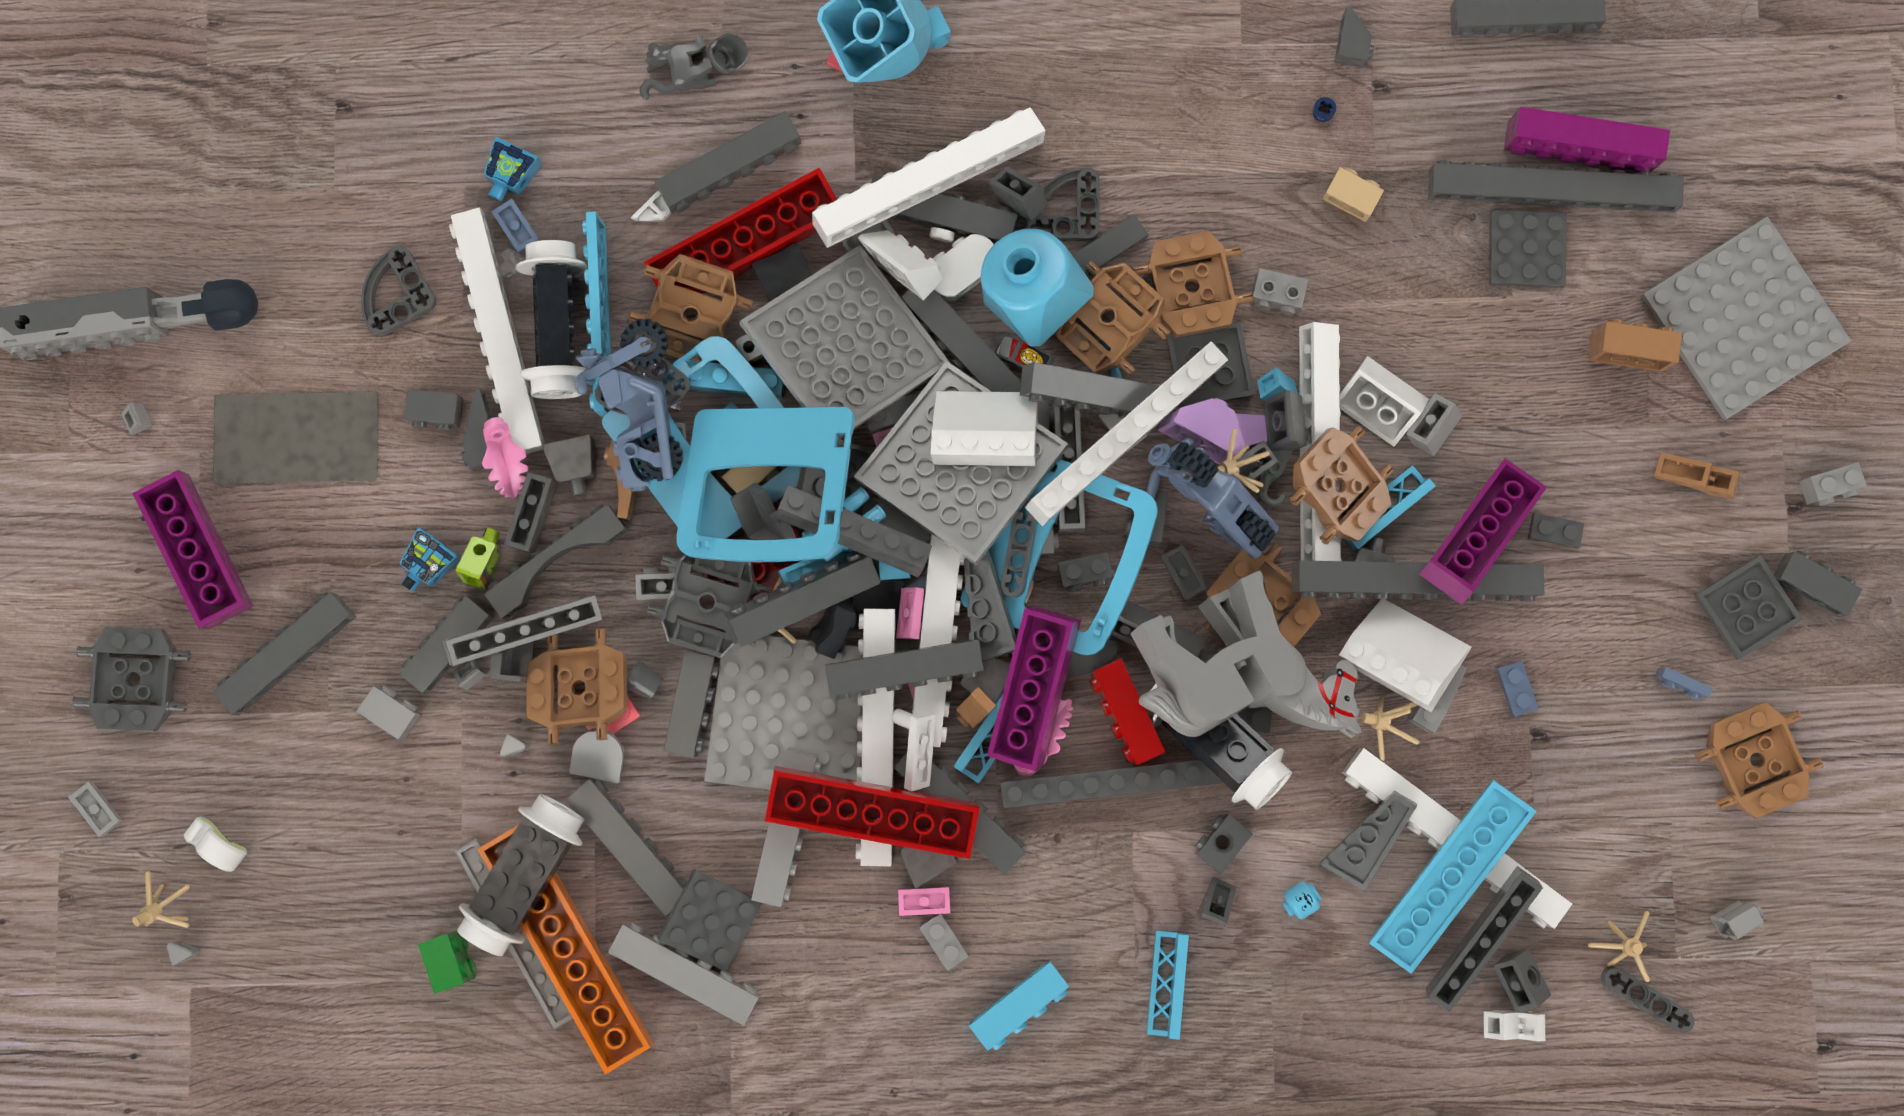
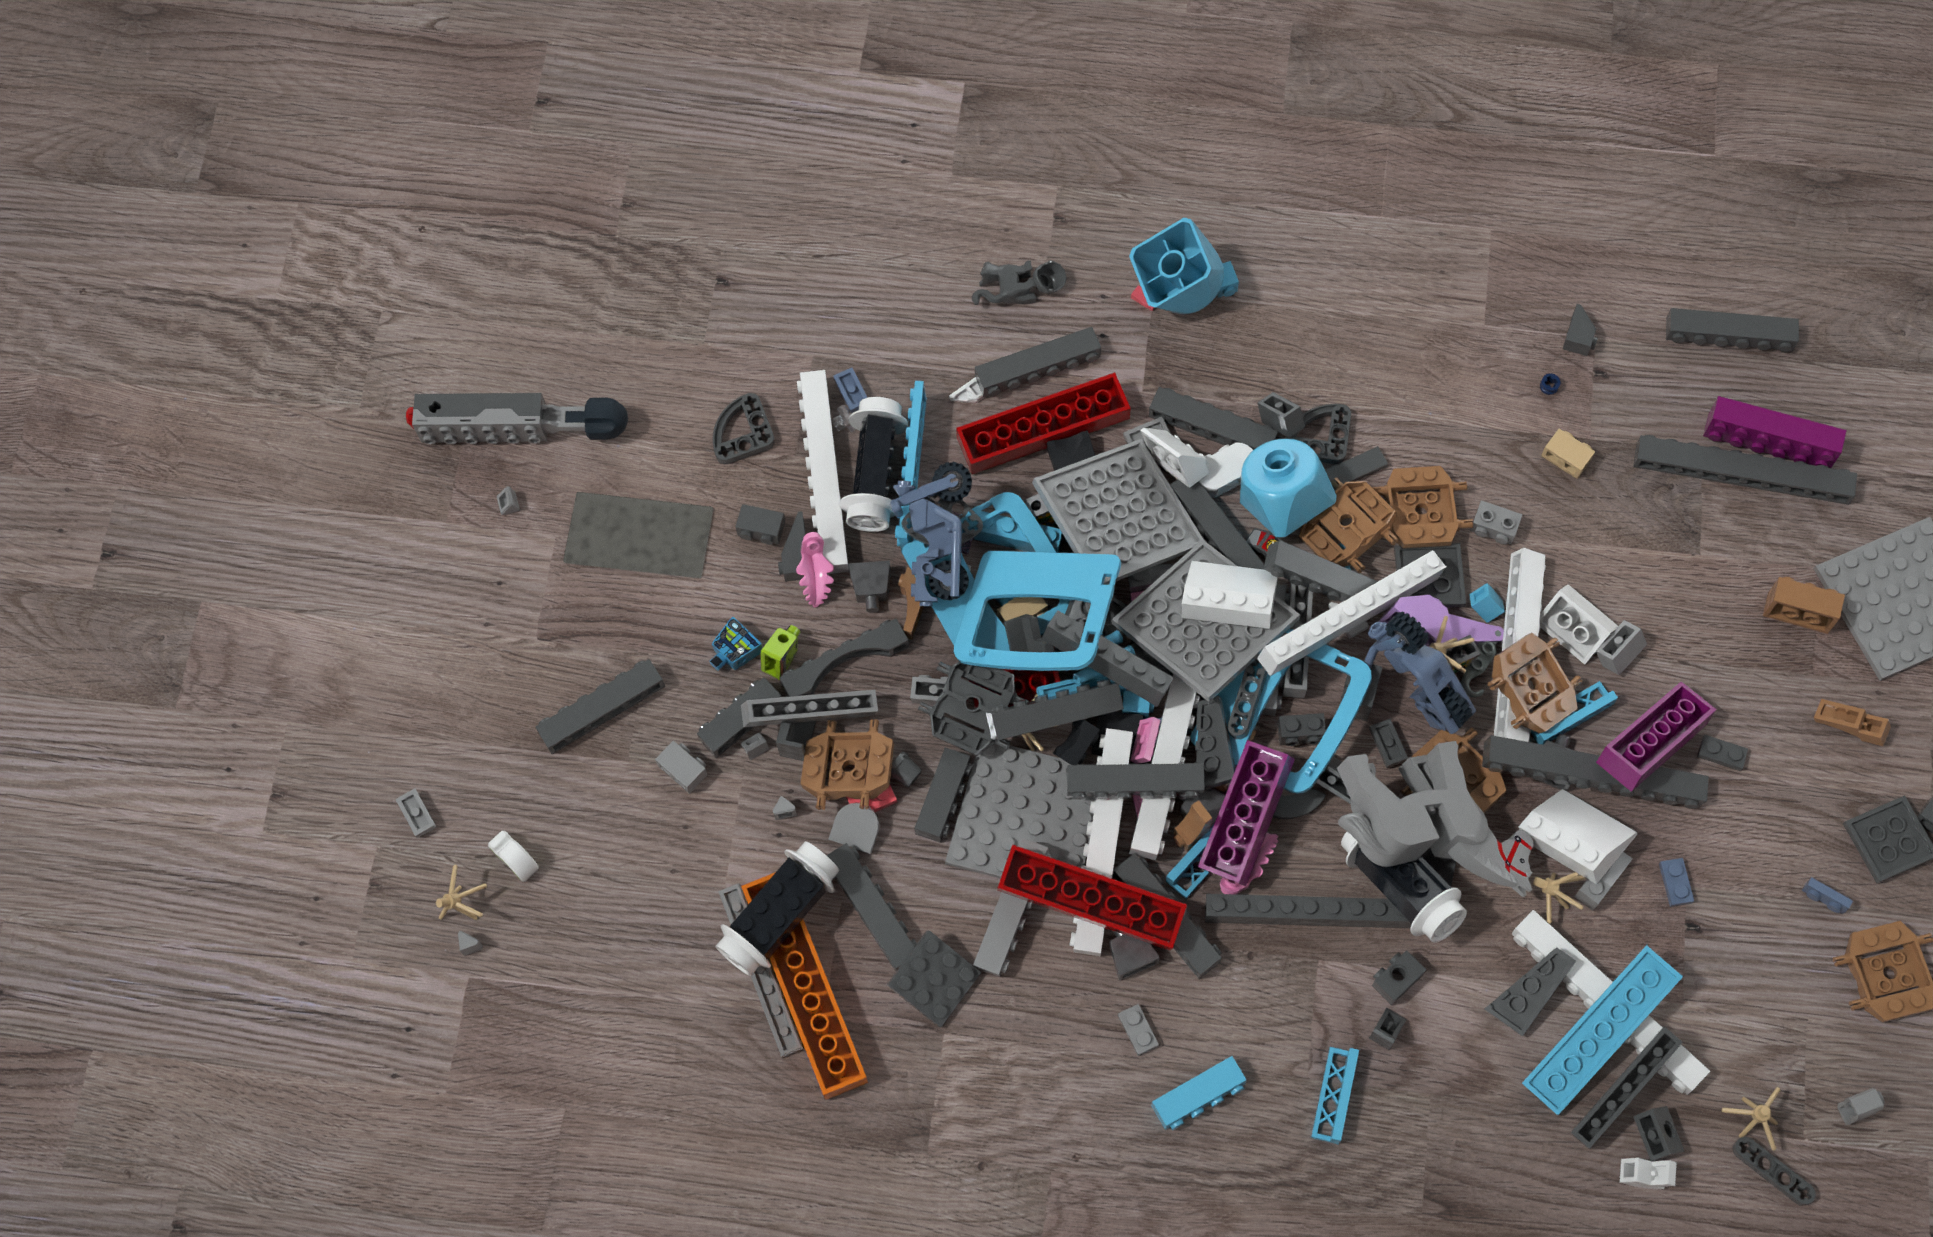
camera: 10 degrees right, 15 degrees down
(112, 676) = (464, 734): dark grey piece -> none
(192, 550) = (538, 610): magenta brick -> none
(447, 961) = (698, 979): green brick -> none
(509, 168) = (854, 344): torso -> none
(530, 513) = (829, 618): dark grey brick -> none
(673, 300) = (978, 458): medium nougat piece -> none
(684, 973) = (905, 1023): light grey brick -> none
(920, 746) = (1140, 849): white piece -> none
(924, 901) = (1125, 991): bright pink plate -> none
(927, 177) = (1206, 391): white brick -> none
(942, 235) = (1211, 441): white tile -> none
(1128, 716) = (1325, 850): red brick -> none
(1285, 422) = (1491, 625): dark grey slope -> none
(1301, 900) = (1464, 1036): medium azure head -> none
(1527, 248) = (1717, 517): dark grey plate -> none

